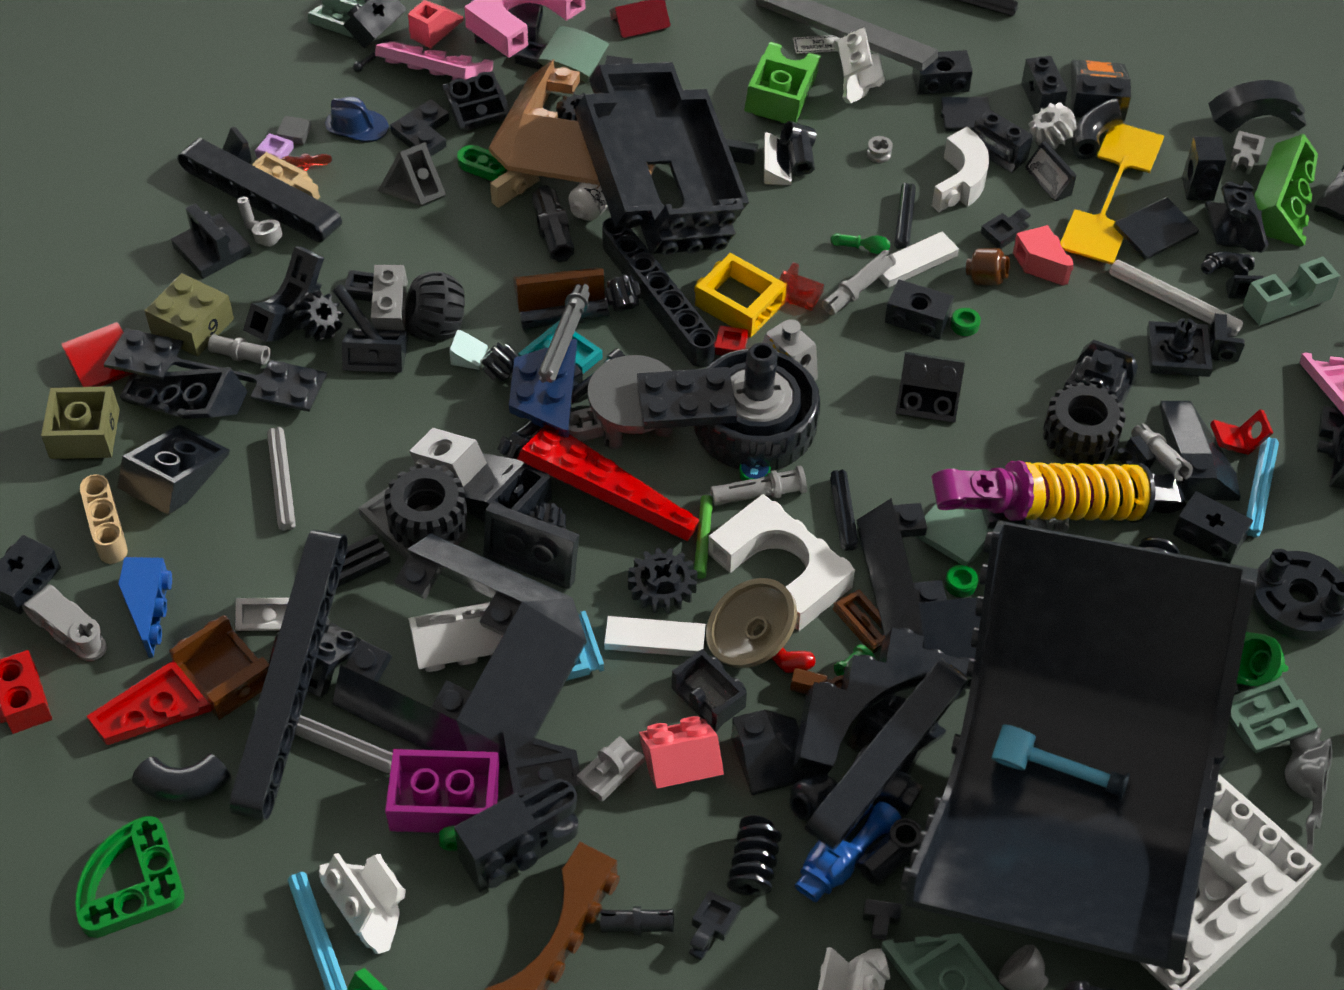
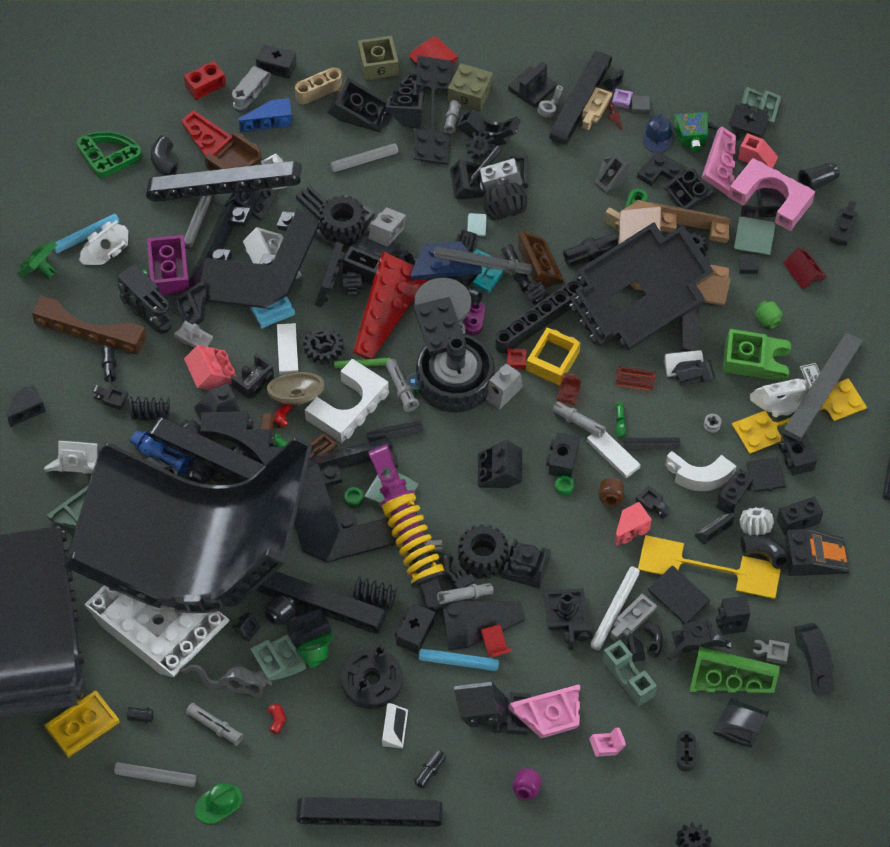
camera: 80 degrees right, 5 degrees up
(368, 79) = (691, 129): none -> green torso
(714, 59) = (768, 314): none -> bright green head
(784, 231) = (635, 381): none -> clear red tile
(894, 107) = (761, 432): none -> yellow hinge
(1016, 748) = (216, 513): medium azure piece -> none
(1194, 279) = (632, 617): none -> light grey hinge

